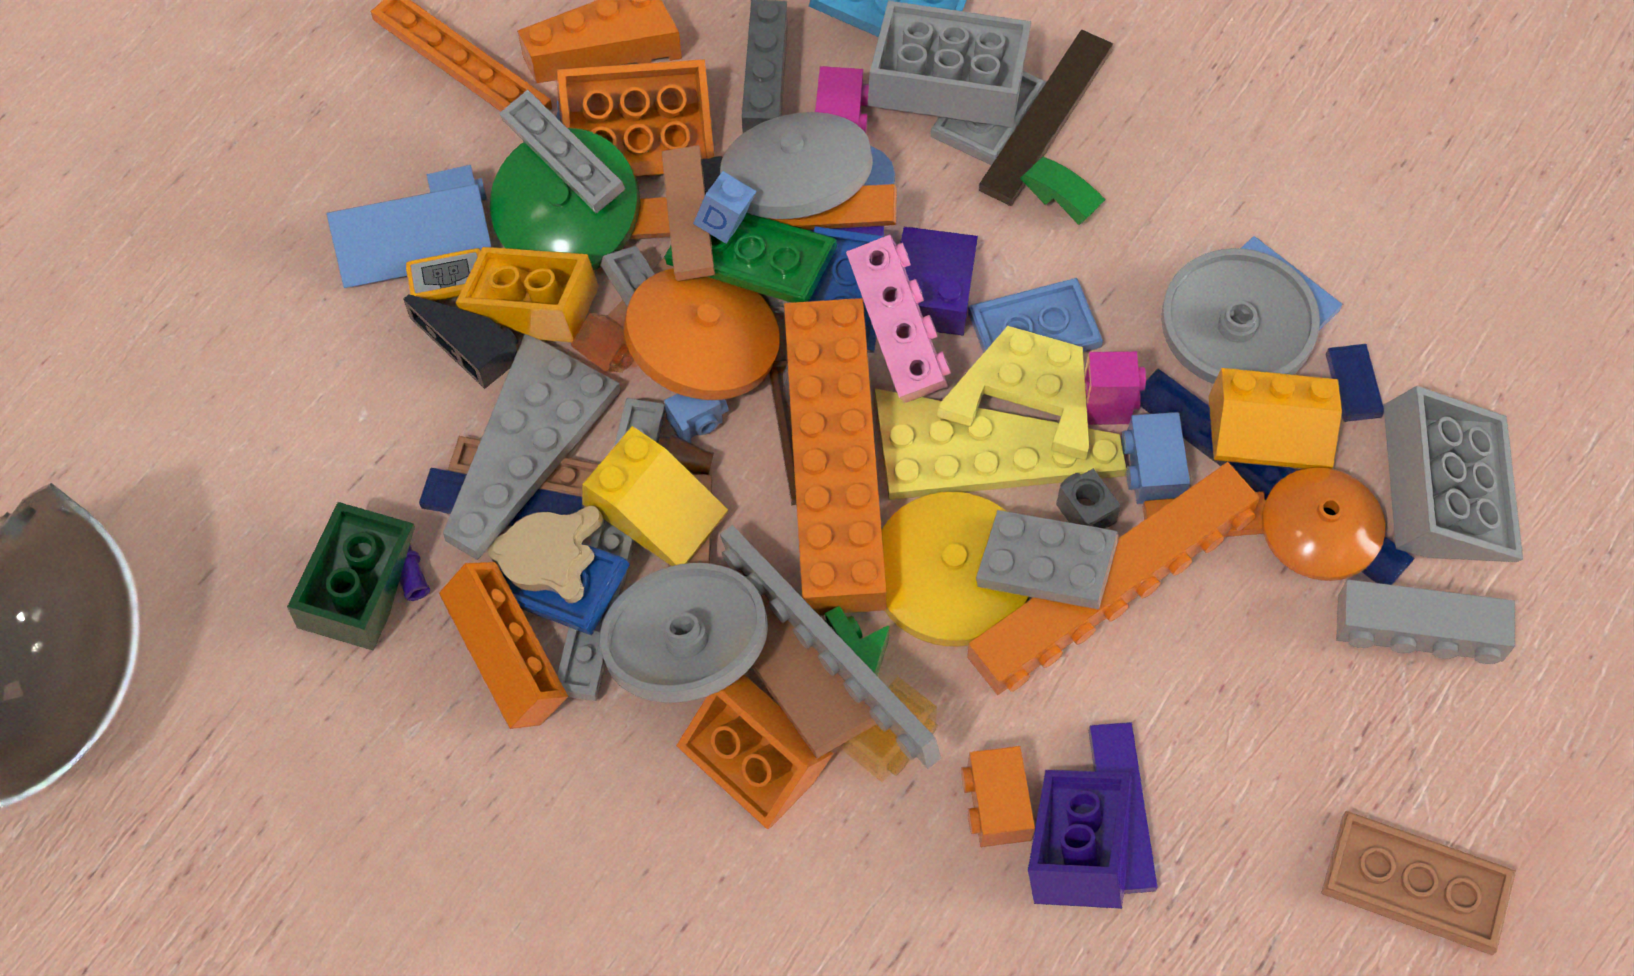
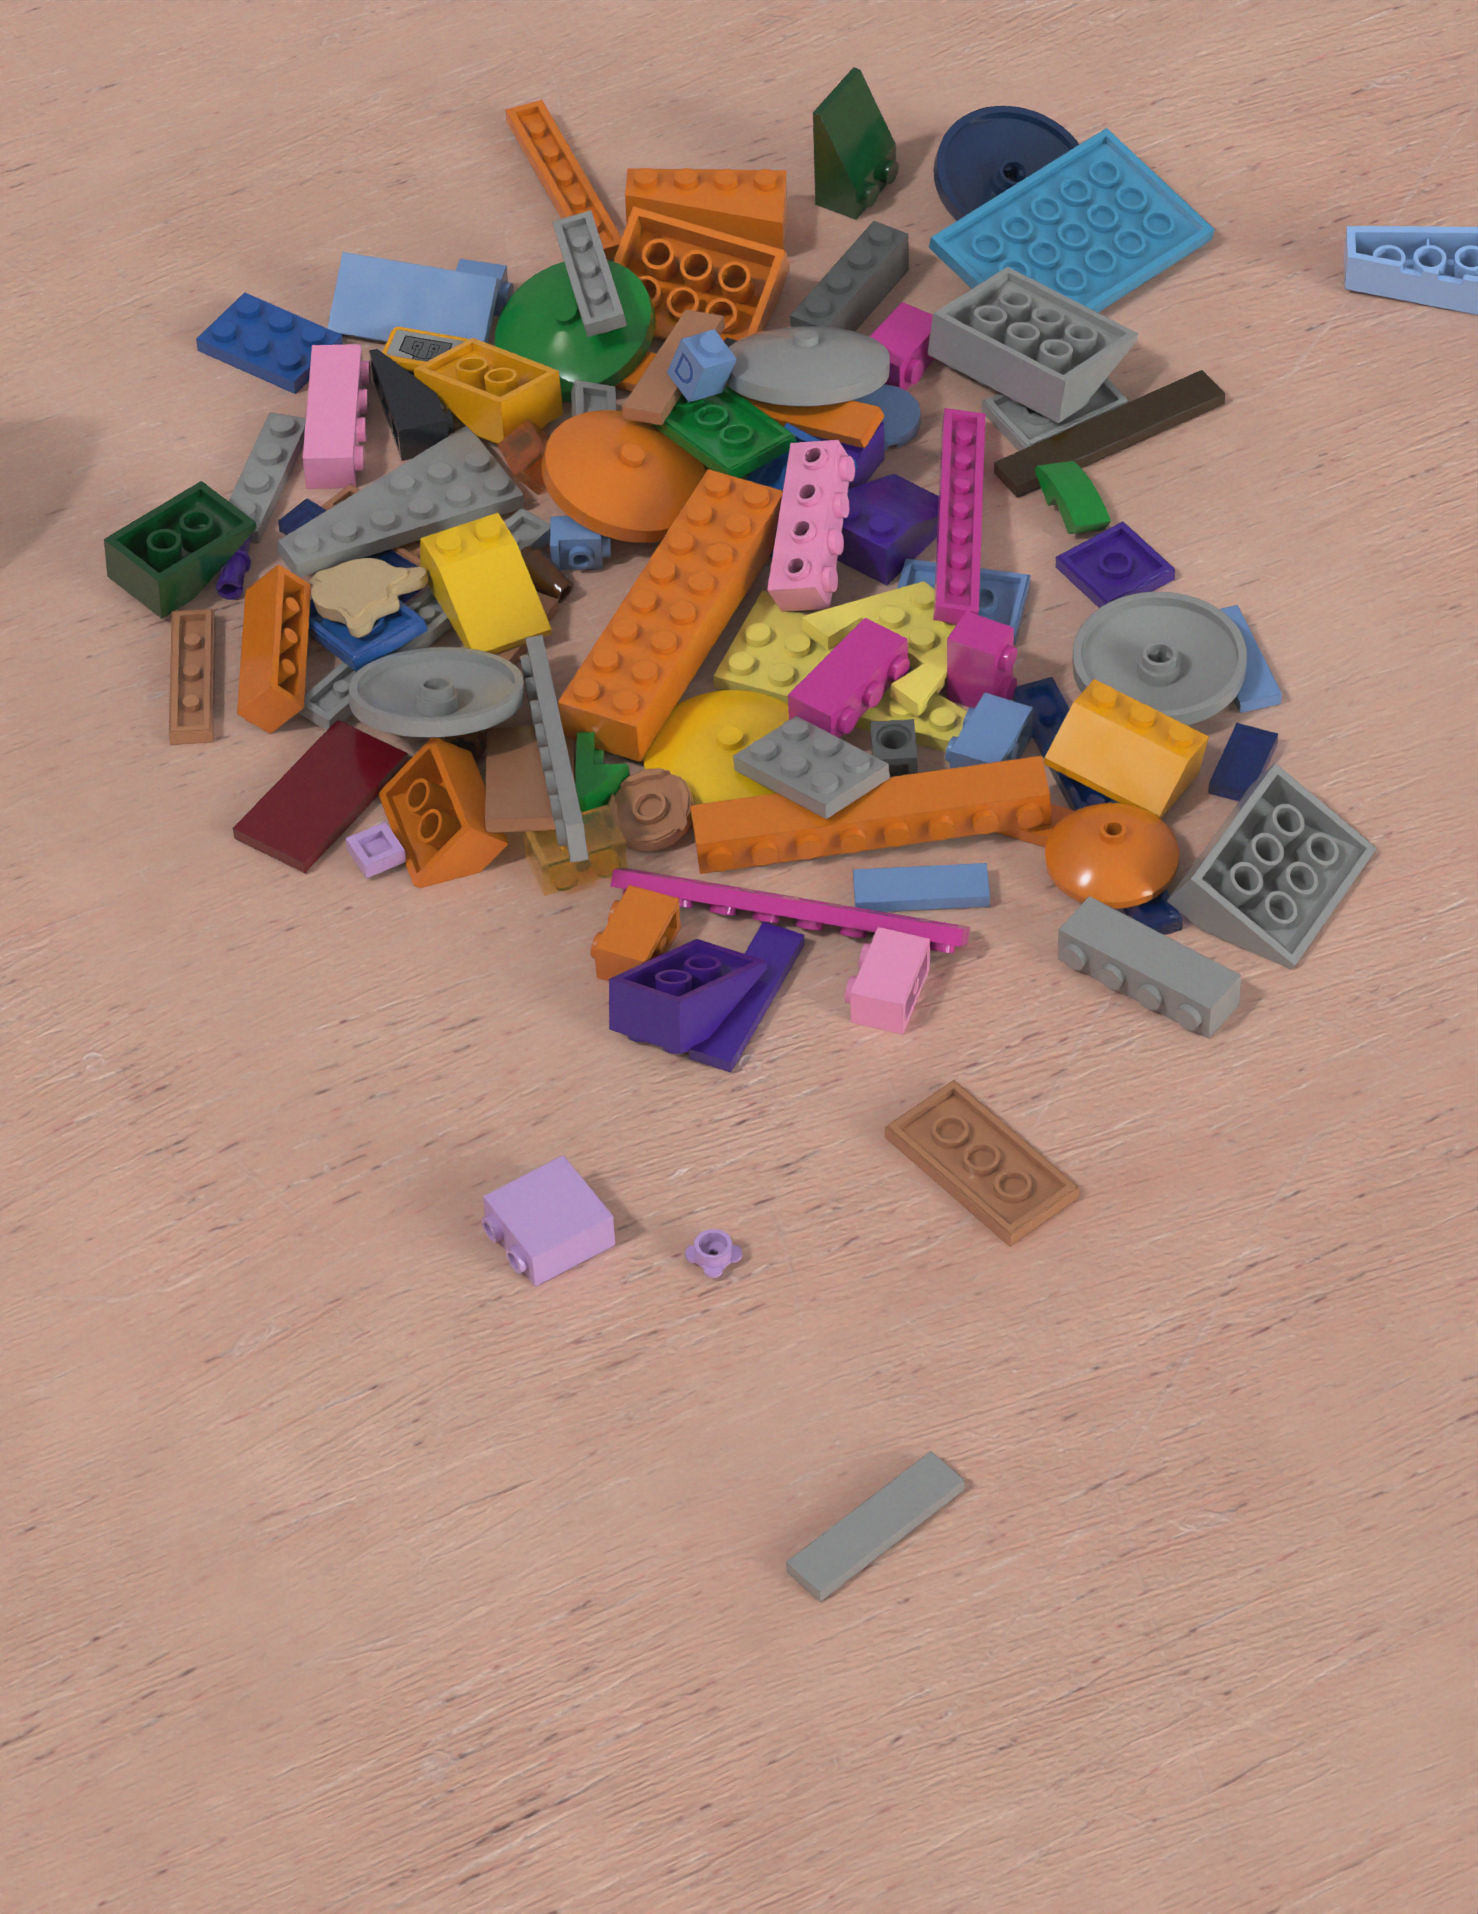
camera: 30 degrees right, 15 degrees down
(299, 320) = (265, 341): none -> blue plate
(376, 452) = (268, 469): none -> light grey plate
(406, 374) = (334, 416): none -> bright pink brick
(437, 699) = (192, 677): none -> nougat tile
(628, 777) = (320, 796): none -> dark red tile
(716, 811) = (375, 849): none -> lavender plate
(926, 654) = (652, 809): none -> nougat tile
(1001, 254) = (959, 515): none -> dark pink plate
(1021, 454) = (850, 678): none -> dark pink brick
(1105, 700) = (808, 912): none -> dark pink plate
(1133, 241) = (1114, 566): none -> dark purple tile
(1189, 625) = (922, 887): none -> medium blue tile
(1232, 737) = (888, 980): none -> bright pink brick

